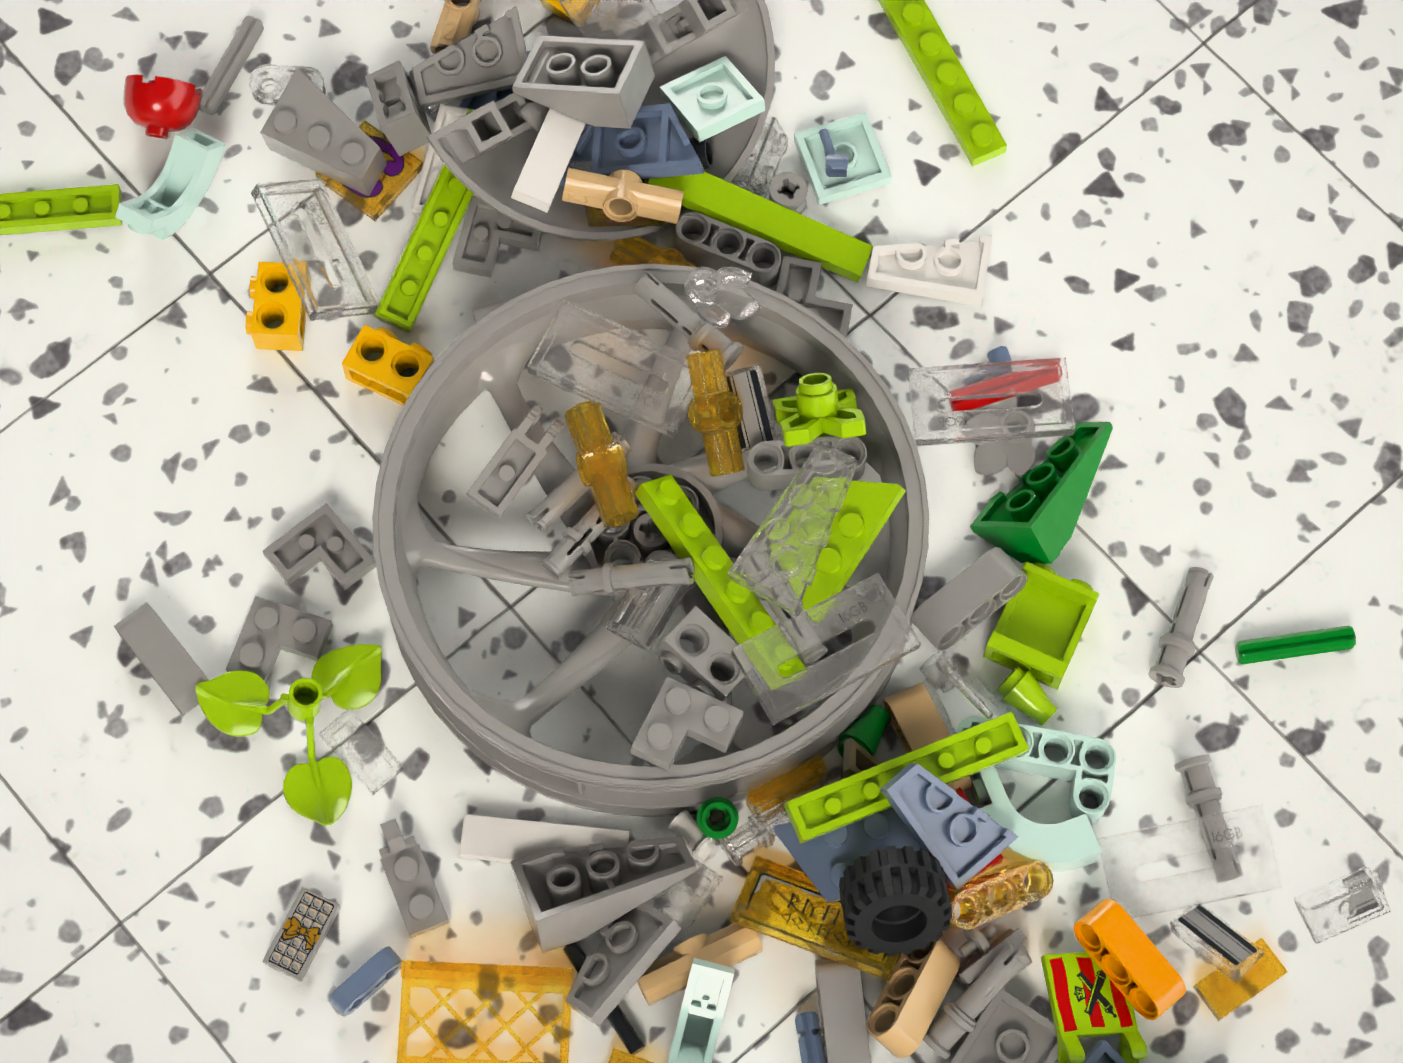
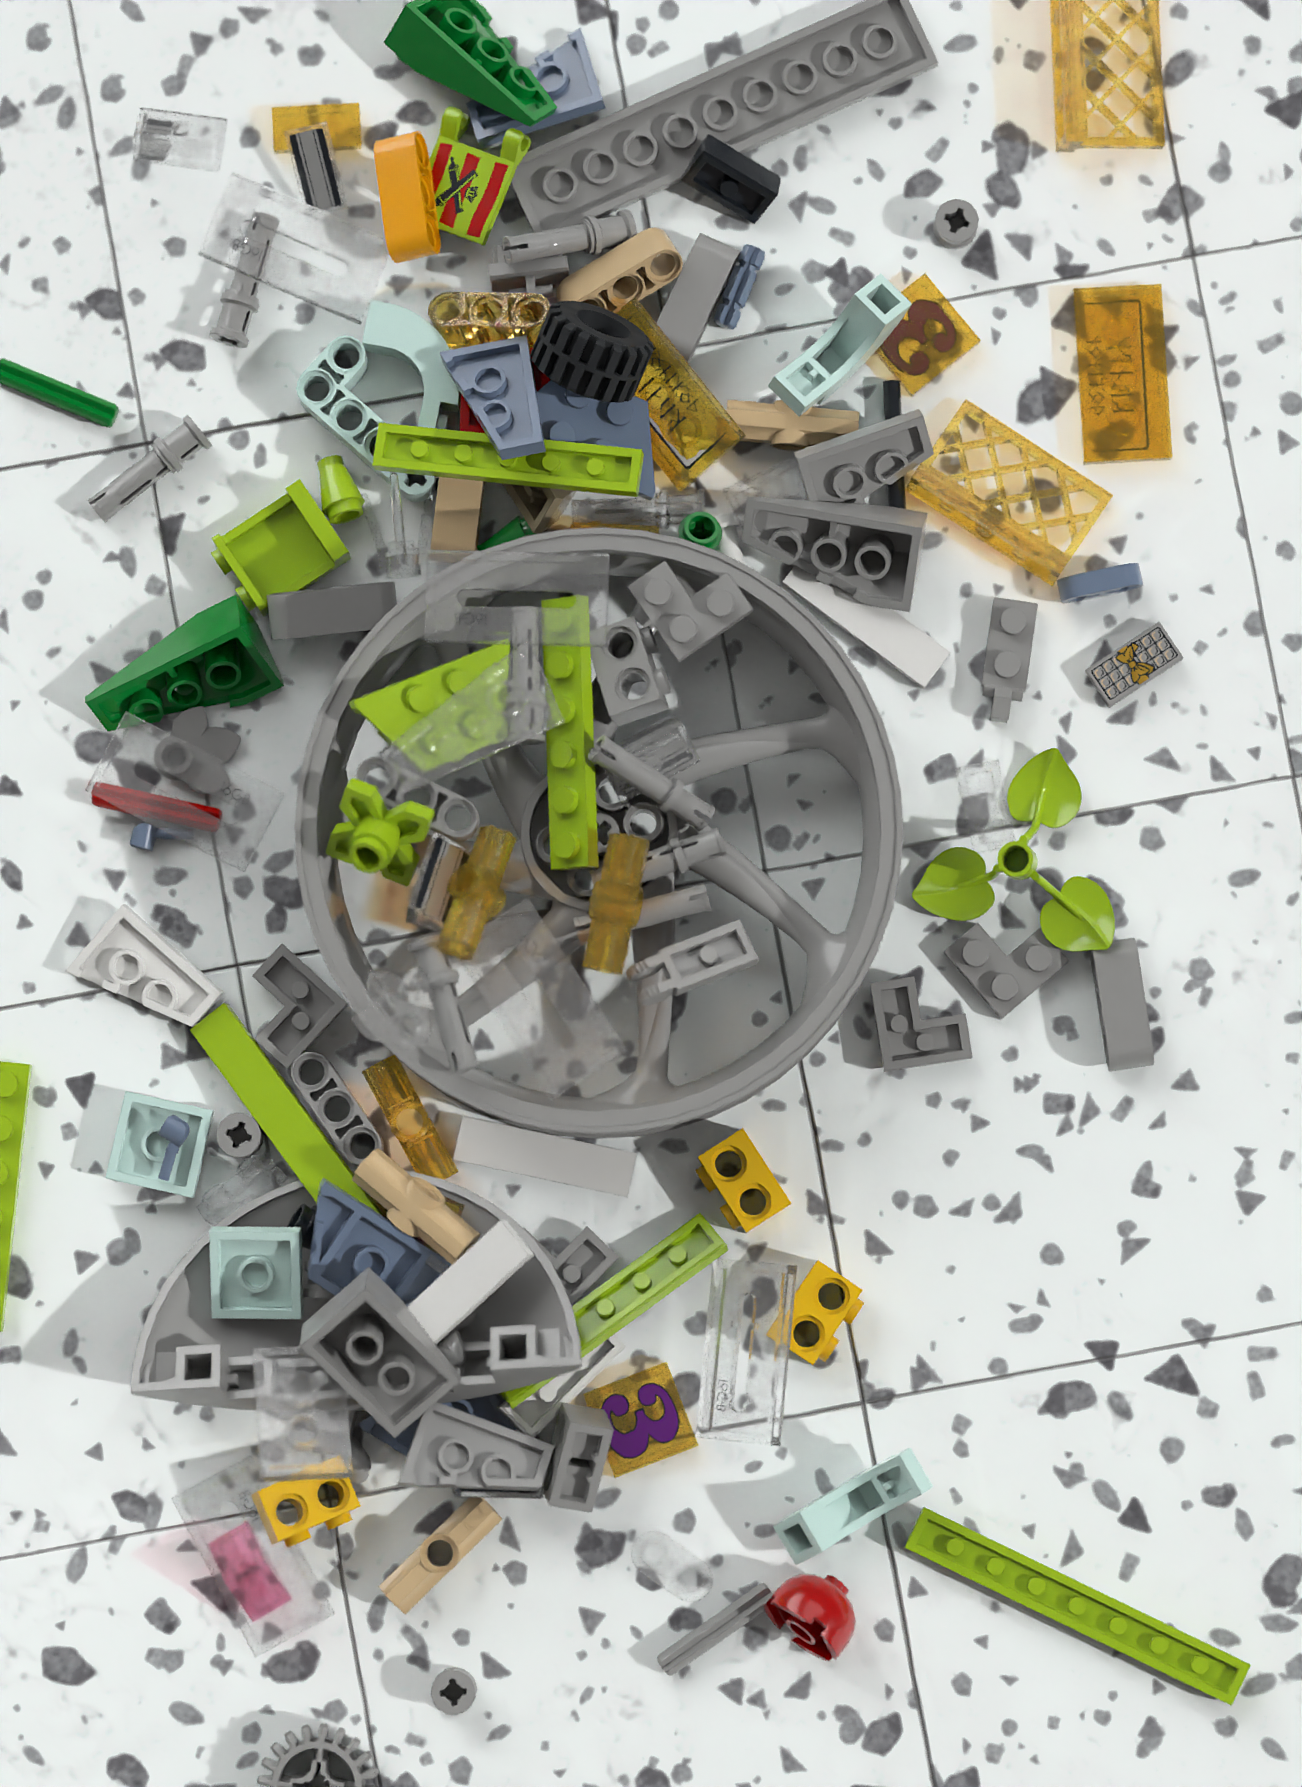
camera: 145 degrees left, 15 degrees up
(322, 137) = (673, 1467): light grey wedge -> none

